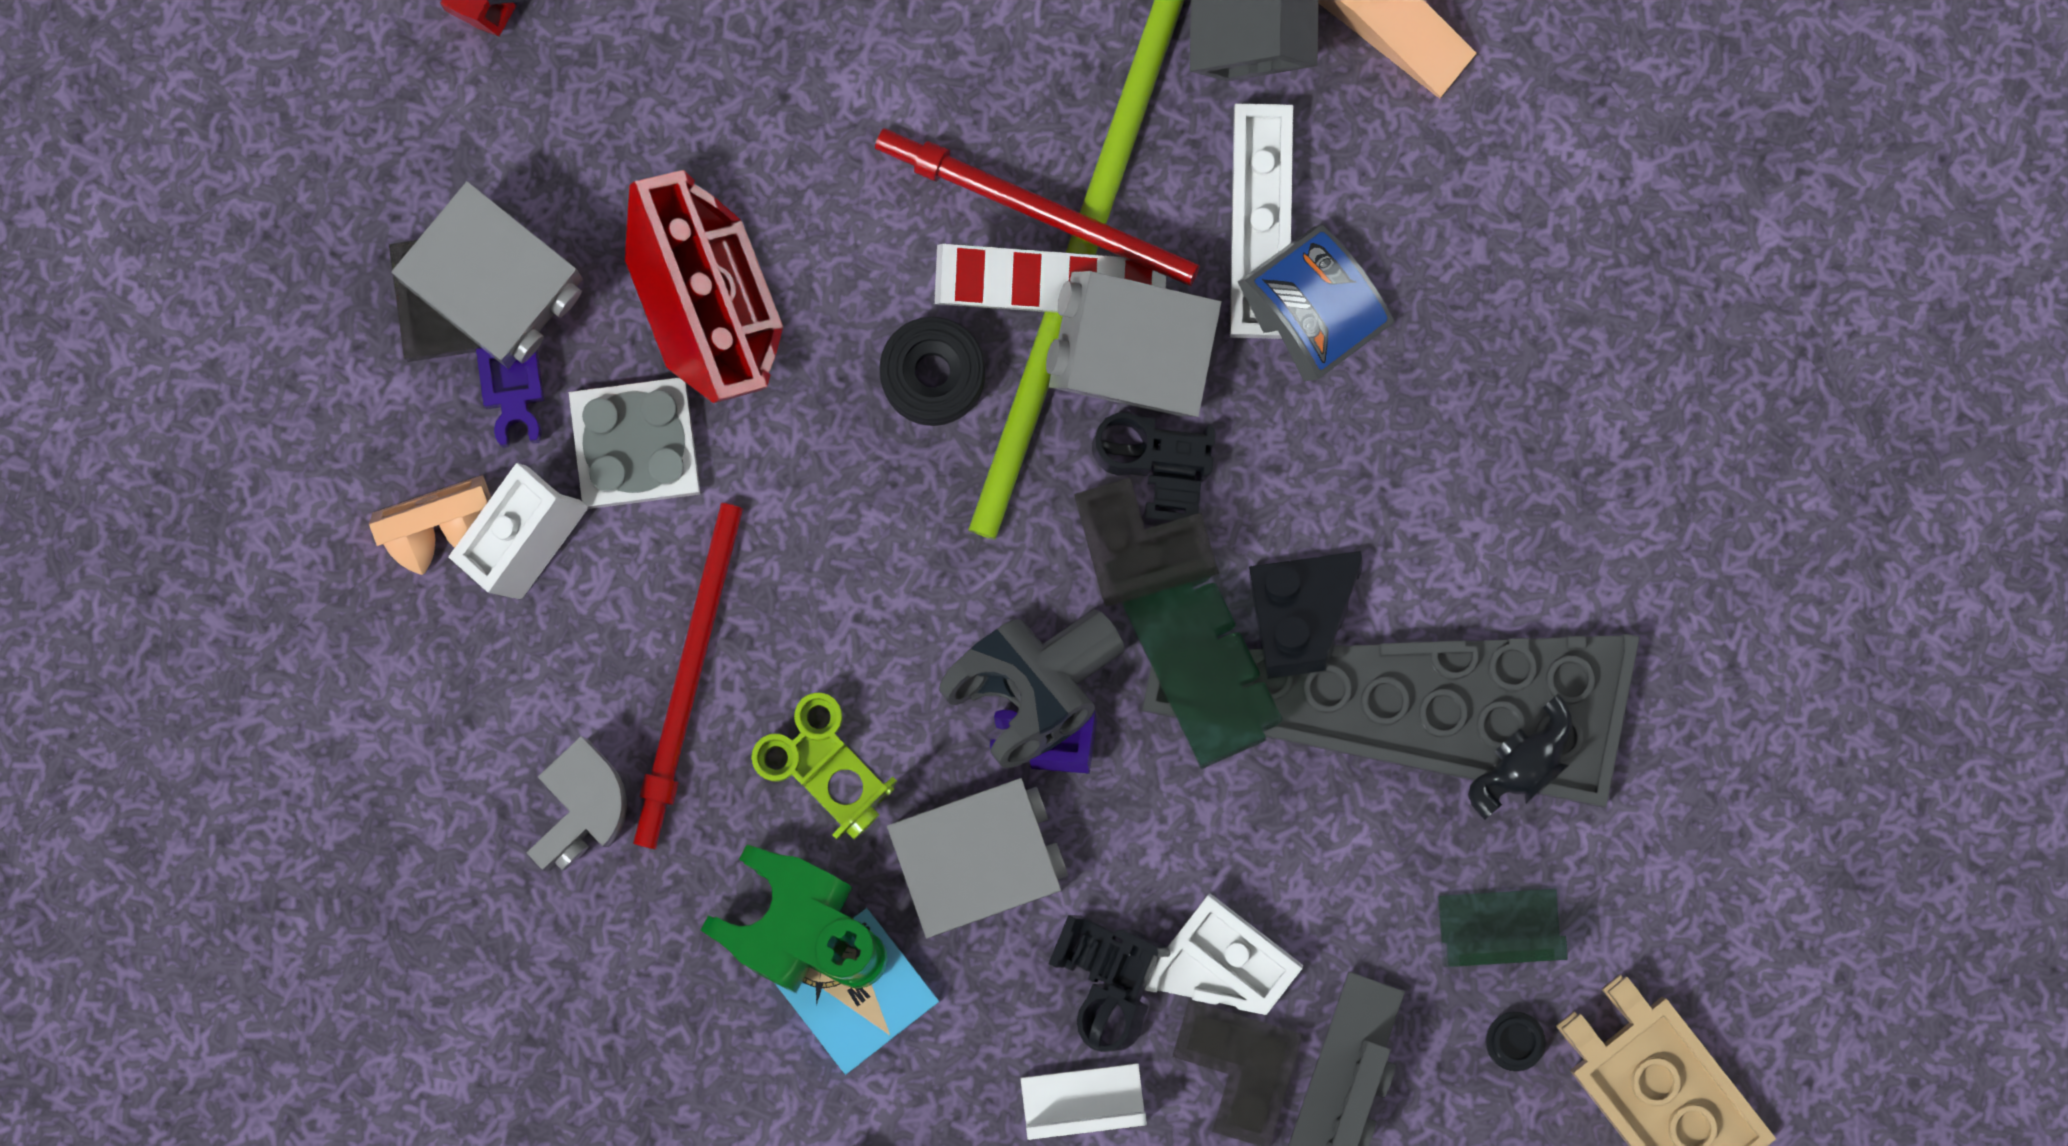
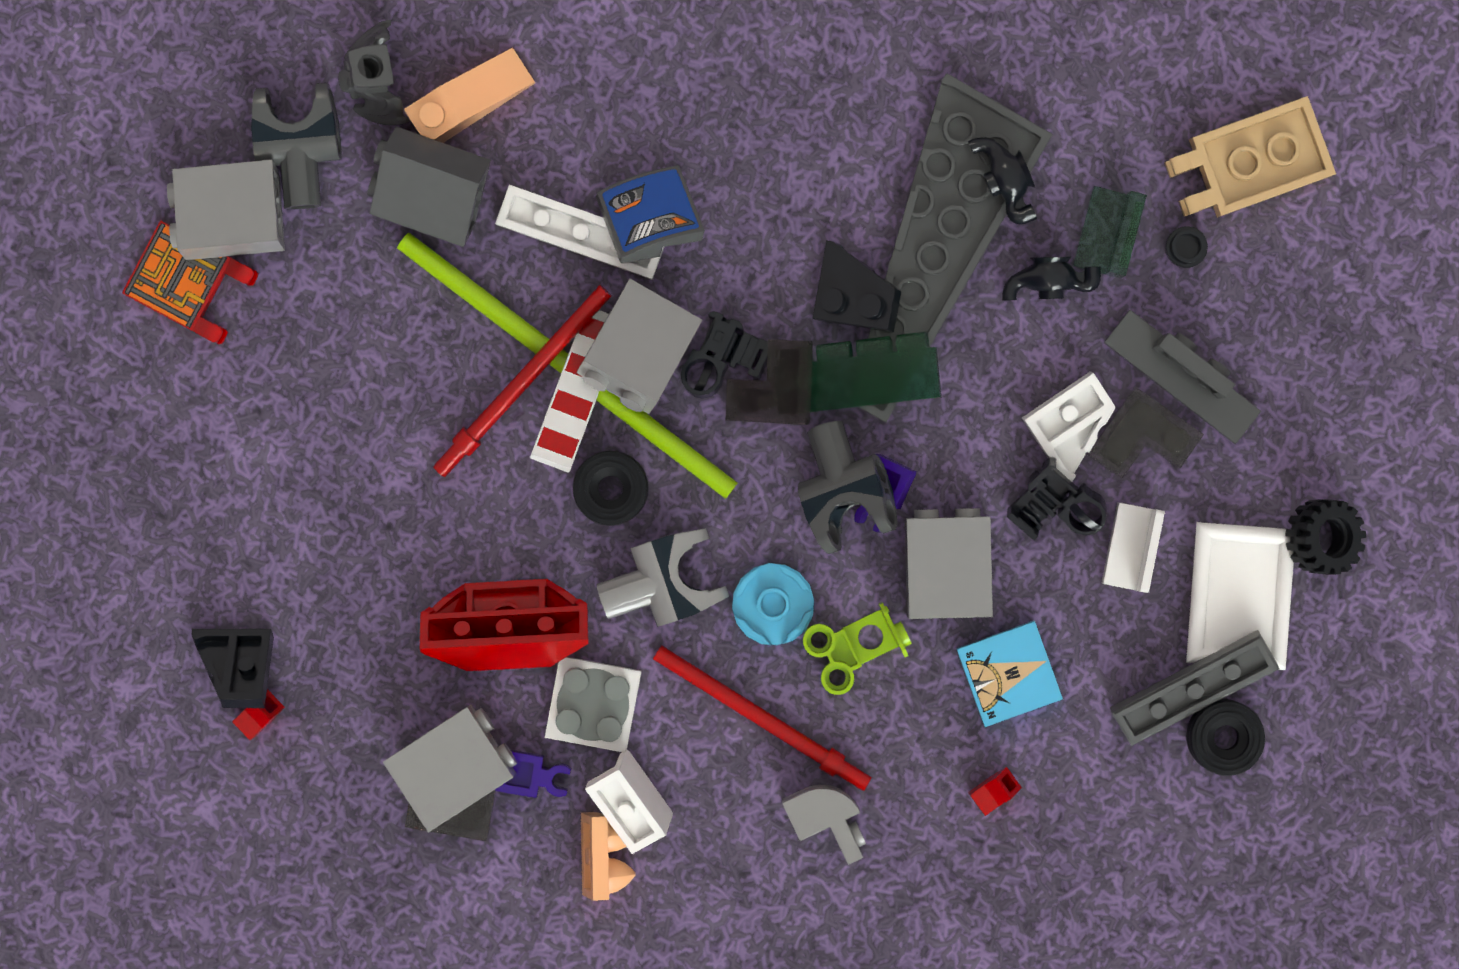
camera: 70 degrees left, 5 degrees up
(690, 1023) = (995, 791): none -> red piece
(801, 927) = (957, 697): green piece -> none
(827, 476) = (658, 582): none -> light grey connector
(859, 659) = (763, 593): none -> medium azure tile
(1411, 869) = (1050, 278): none -> black piece

